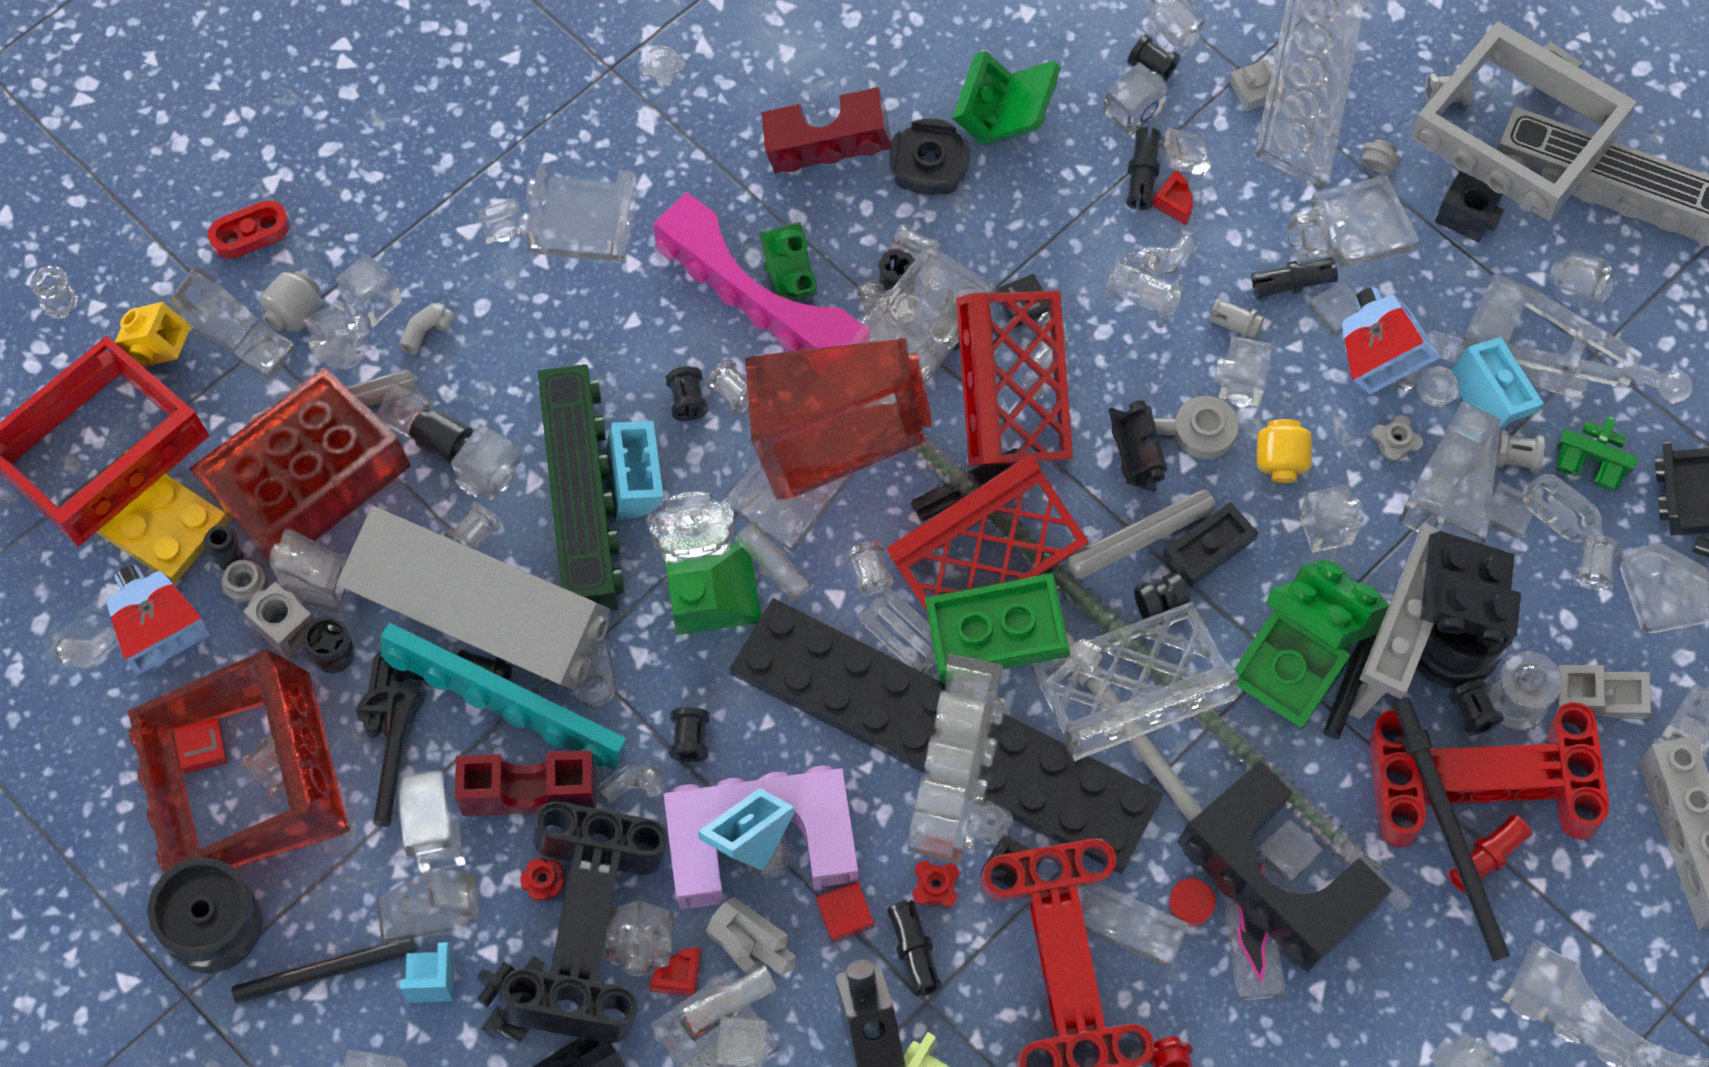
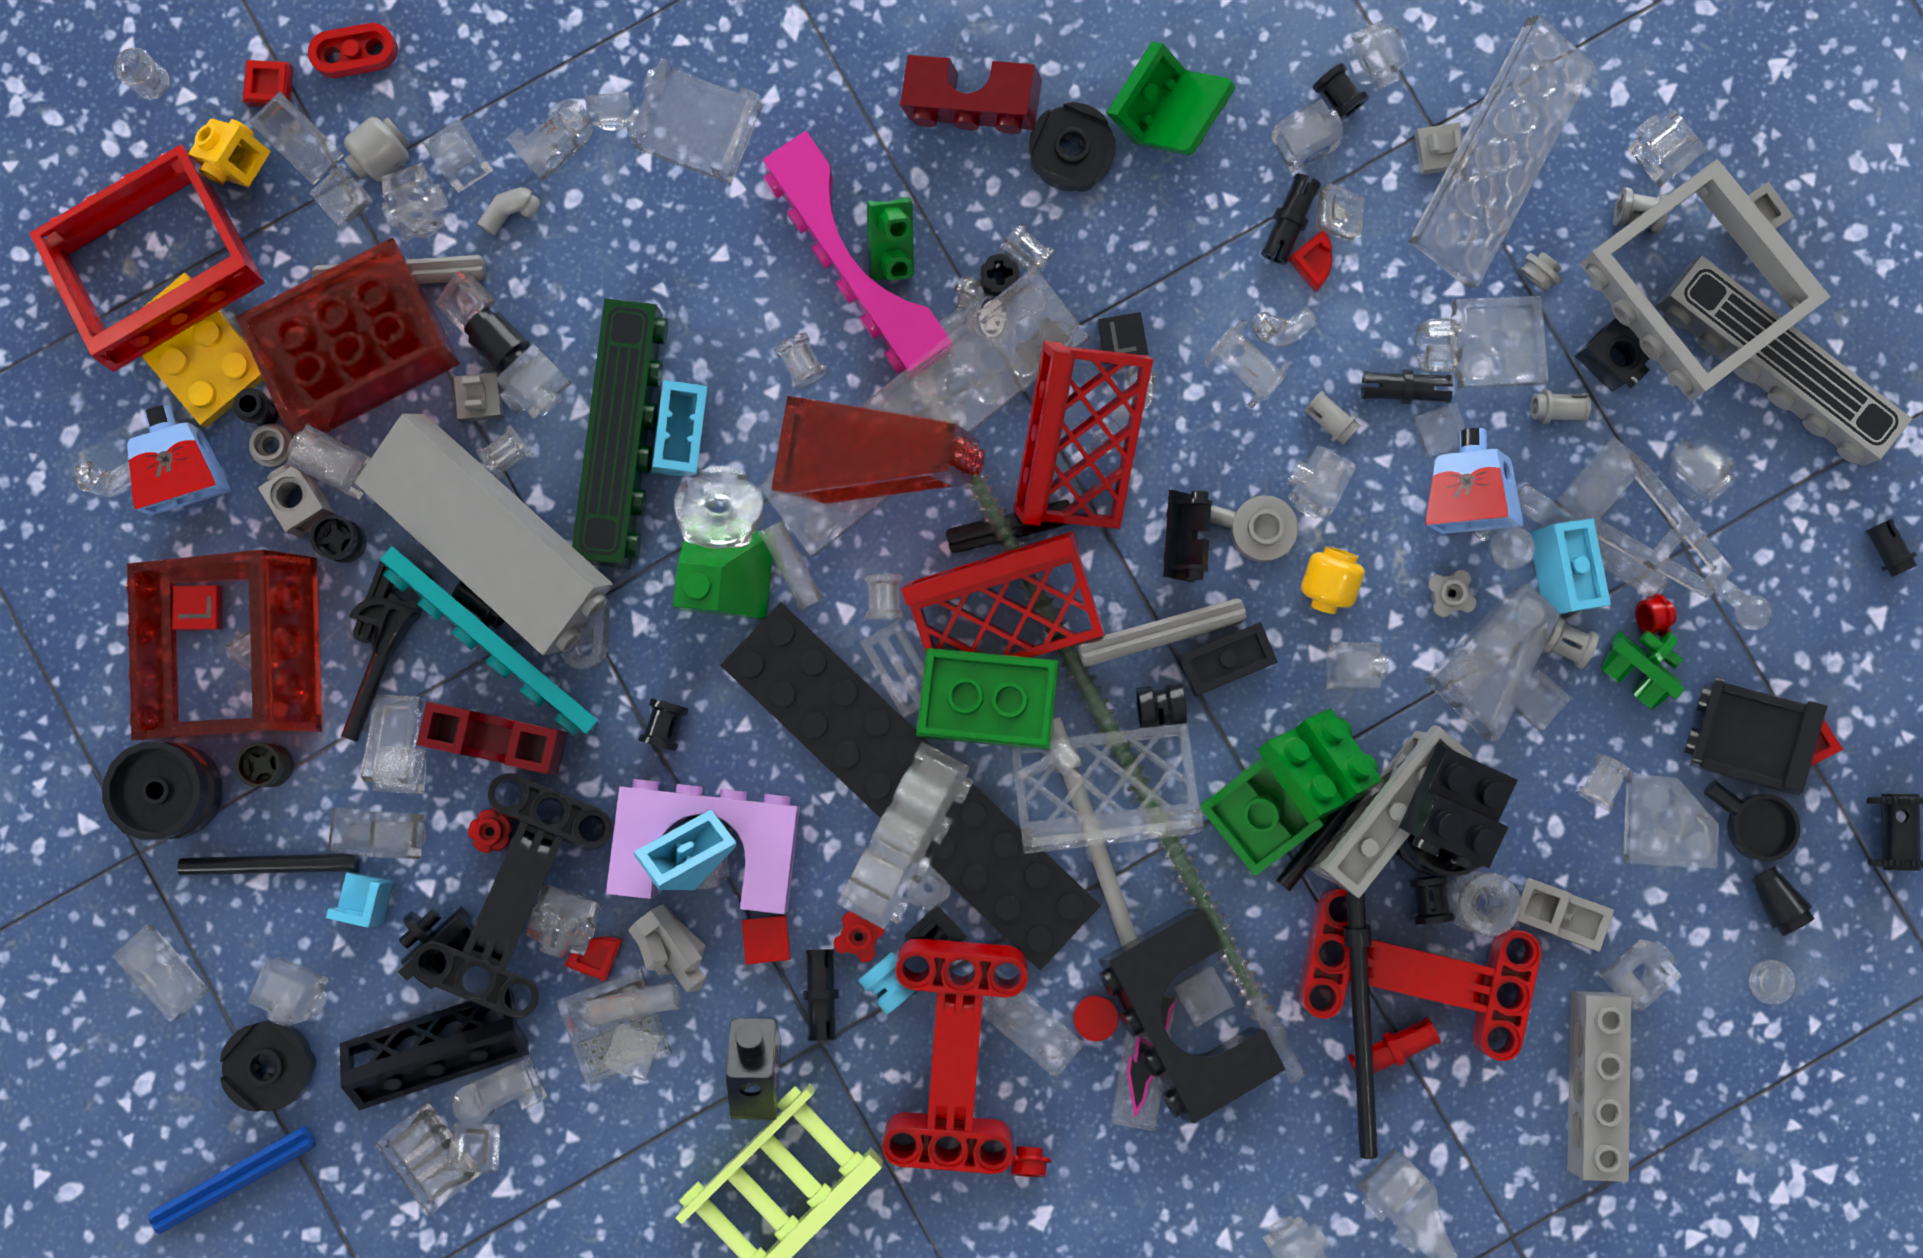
camera: 15 degrees right, 20 degrees up
(168, 274) = (265, 80): none -> red tile
(296, 862) = (255, 762): none -> pearl dark grey wheel
(435, 491) = (478, 397): none -> light grey tile
(453, 258) = (554, 139): none -> clear leg
(633, 776) = (600, 752): clear arm -> none
(686, 393) = (752, 356): black bush -> none
(978, 917) = (884, 984): none -> medium azure wheel
(1437, 261) = (1551, 406): none -> light grey pin
(1450, 35) = (1665, 147): none -> clear brick
(1562, 507) = (1597, 710): clear beam -> none
(1588, 408) = (1655, 615): none -> red plate

